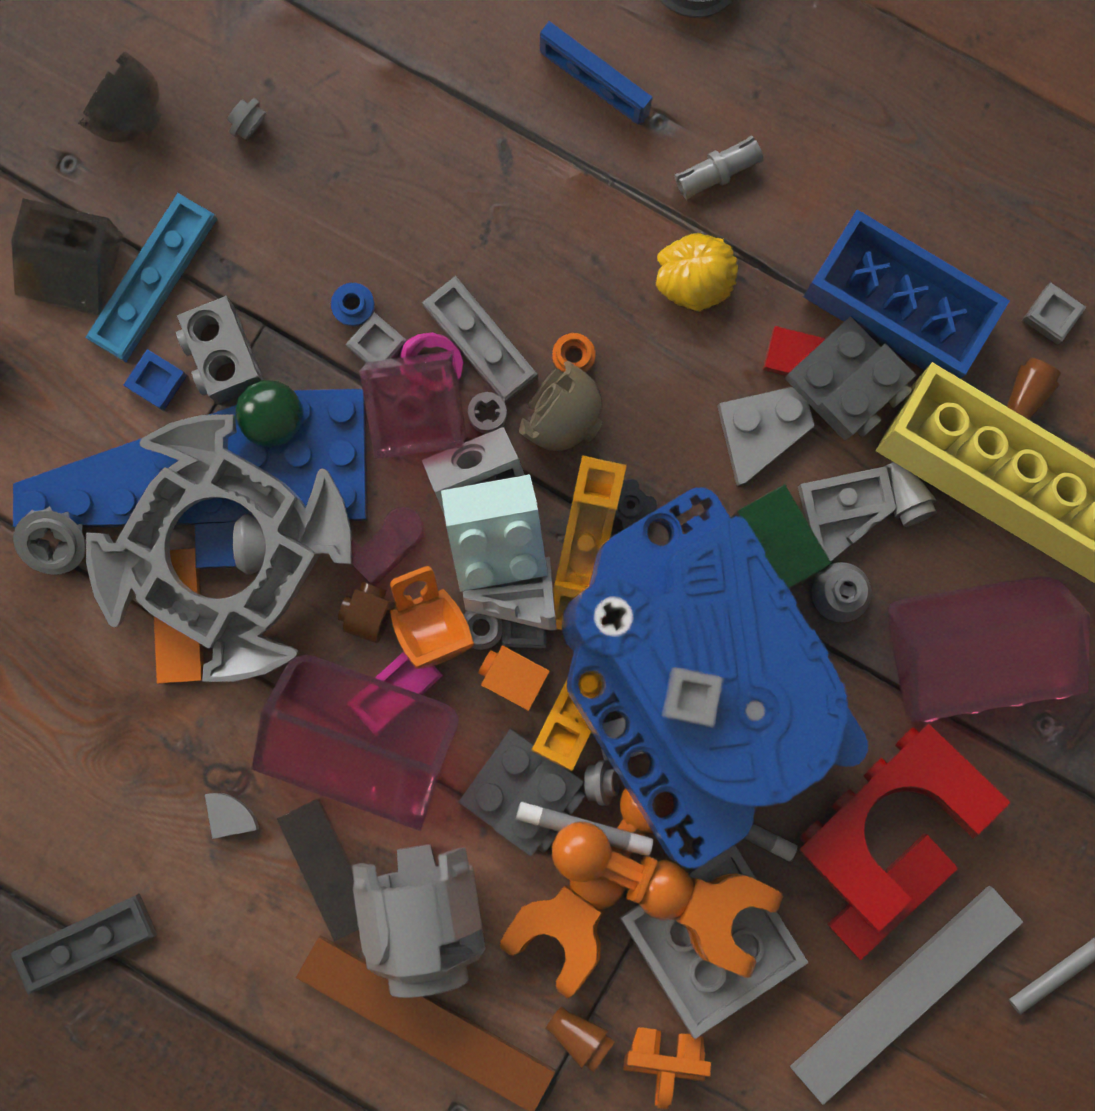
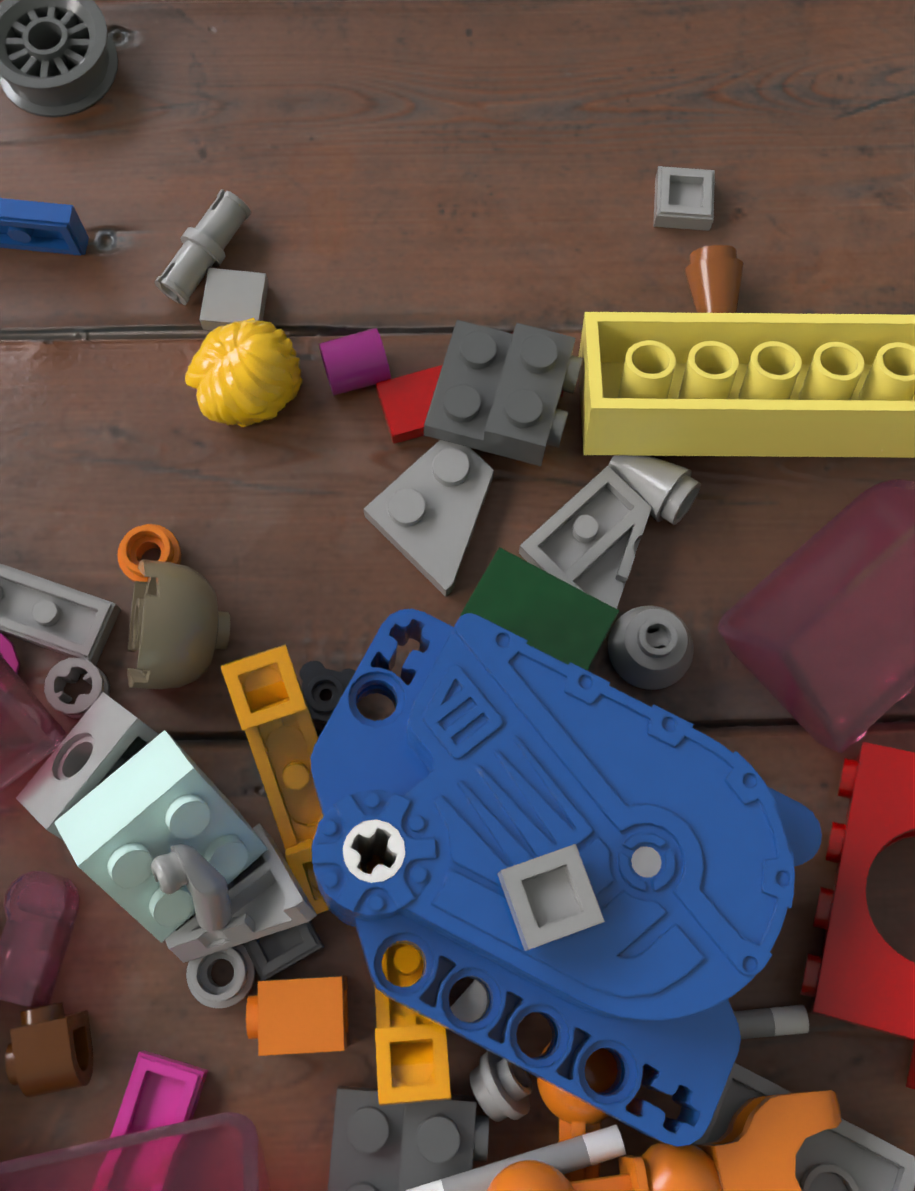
camera: 30 degrees left, 10 degrees down
(430, 626) = (146, 1018): orange piece -> none
(507, 577) = (204, 882): none -> light grey arm
(717, 214) = (232, 297): none -> light grey tile
(770, 304) = (355, 361): none -> magenta beam
(906, 297) = (505, 261): blue brick -> none

